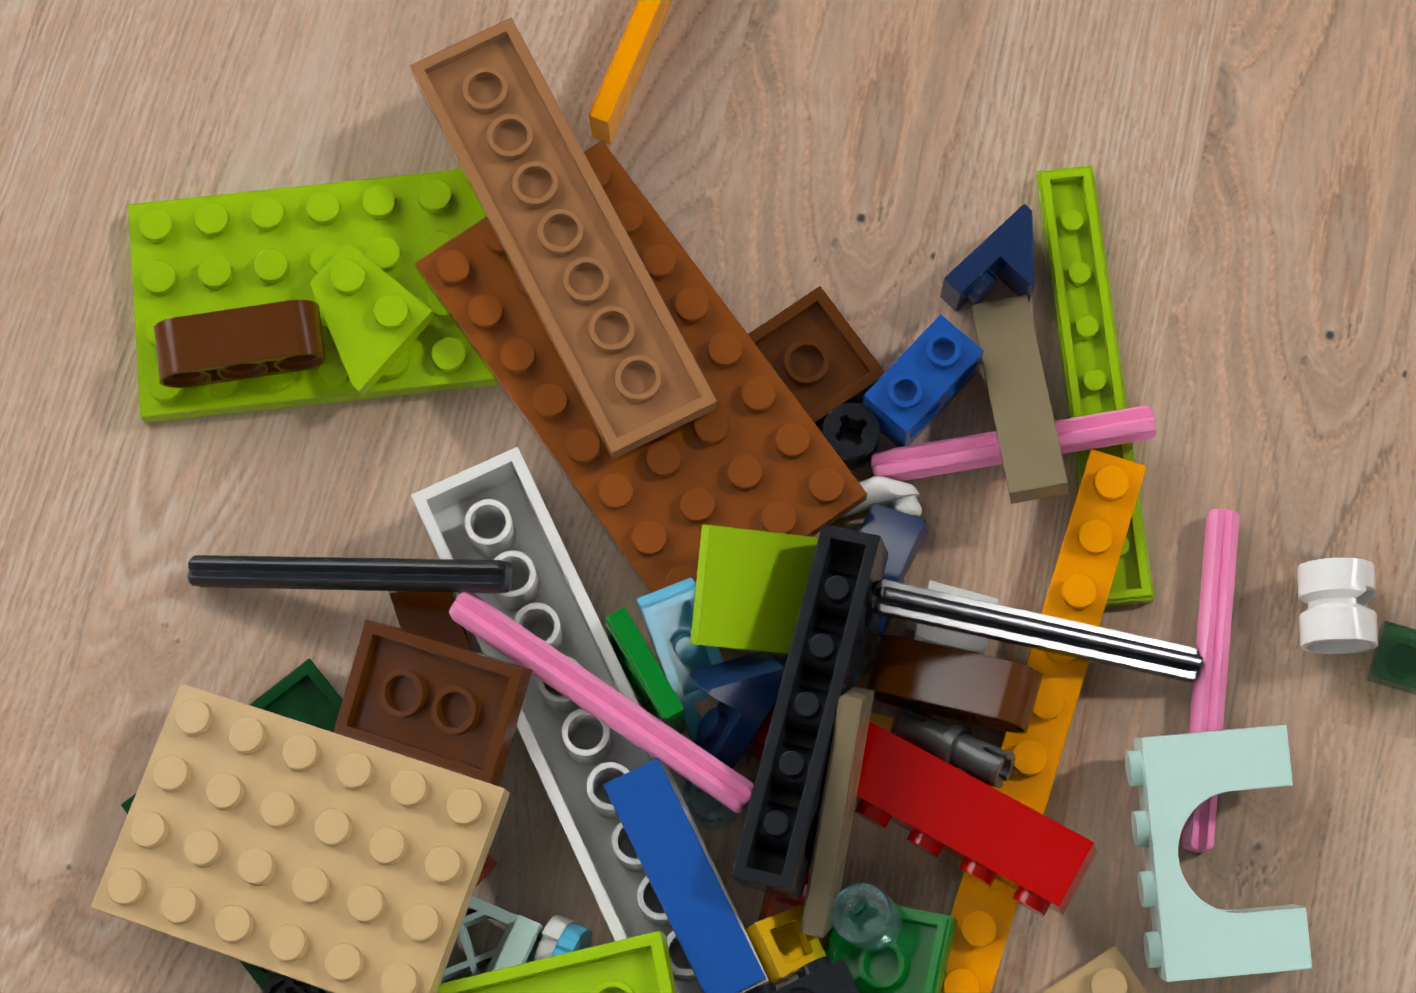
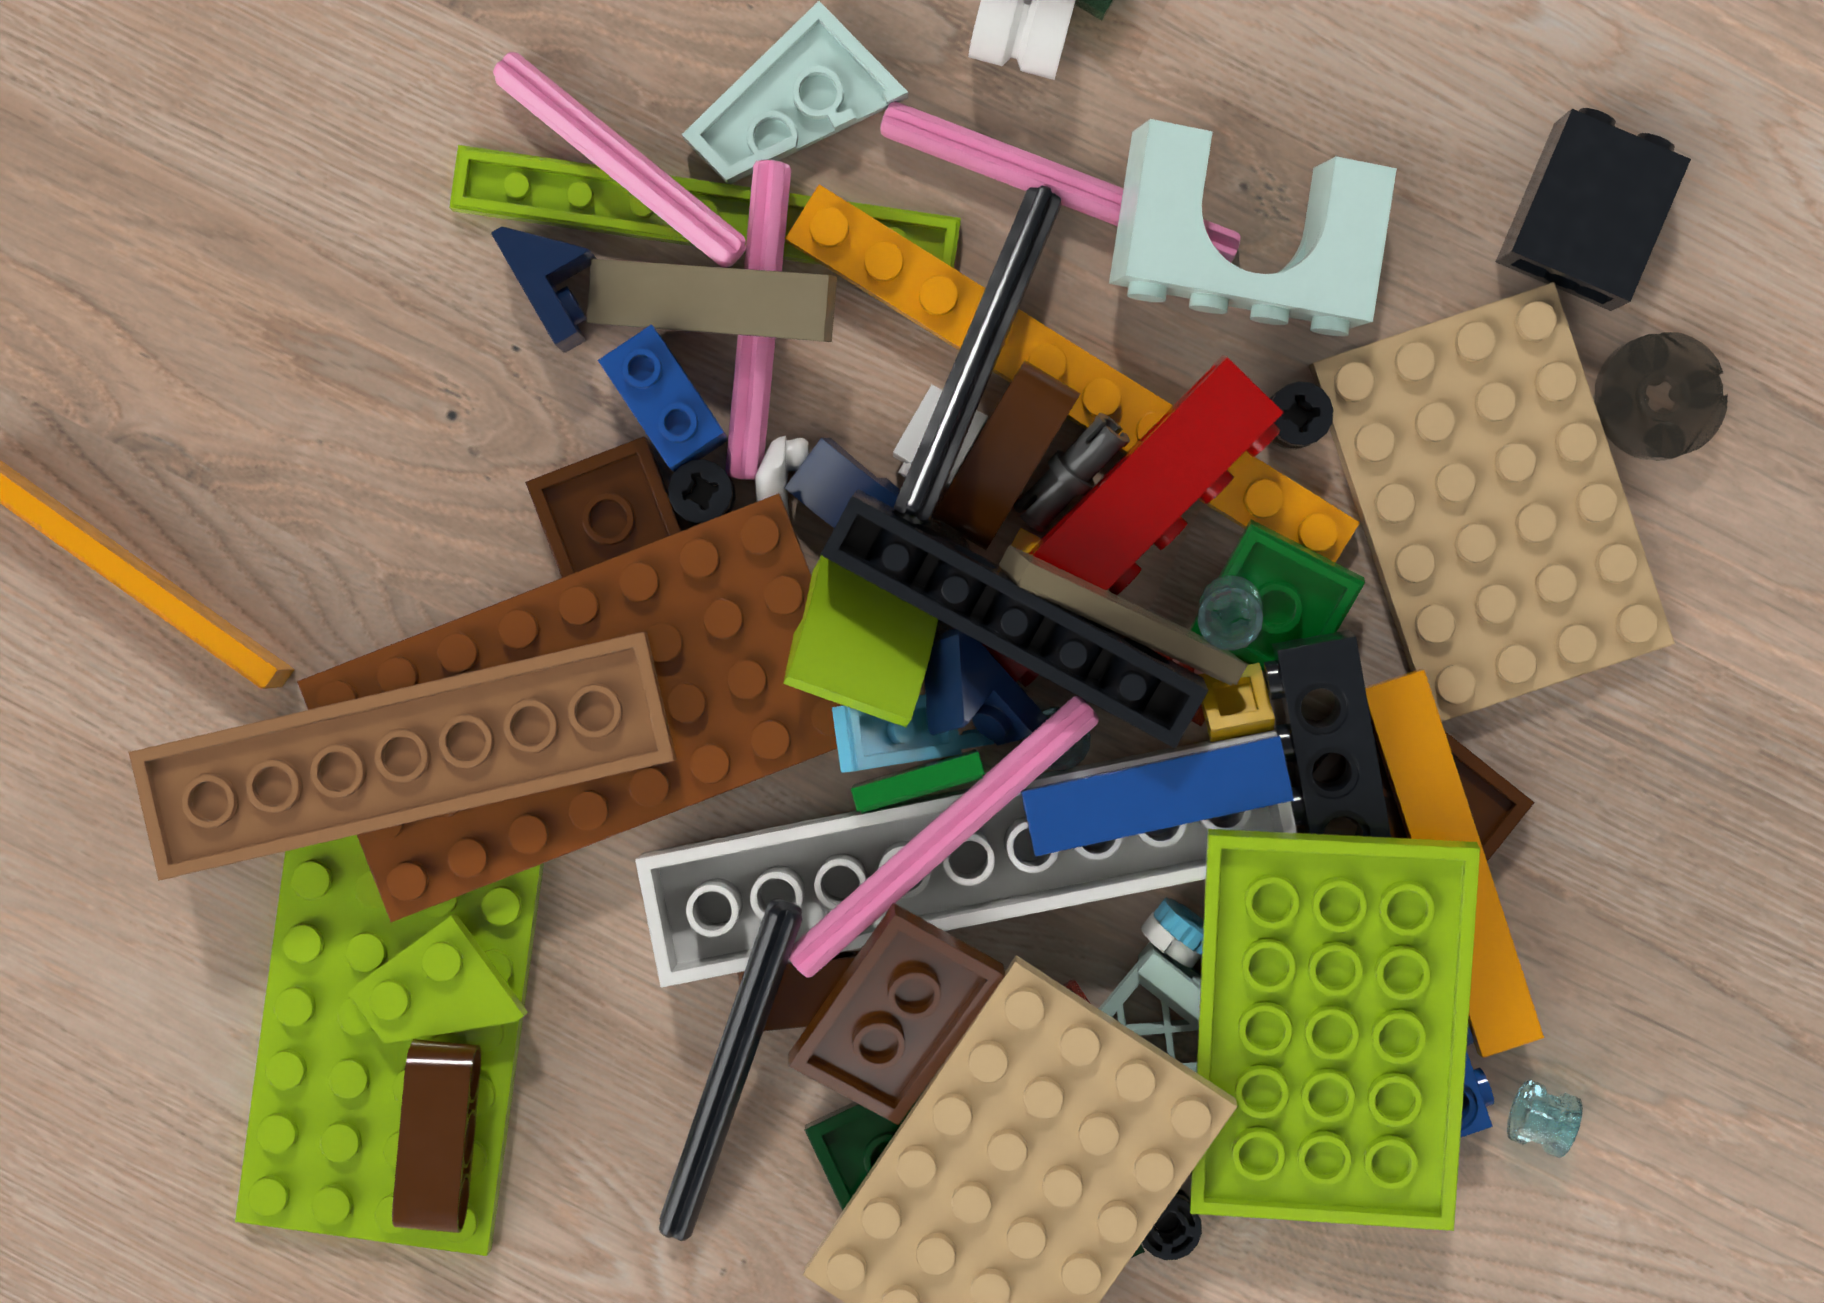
camera: 75 degrees left, 15 degrees up
(1056, 955) = (1295, 417): none -> black wheel
(1117, 297) = (620, 160): none -> bright pink axle
(1216, 429) = (793, 97): none -> light aqua wing

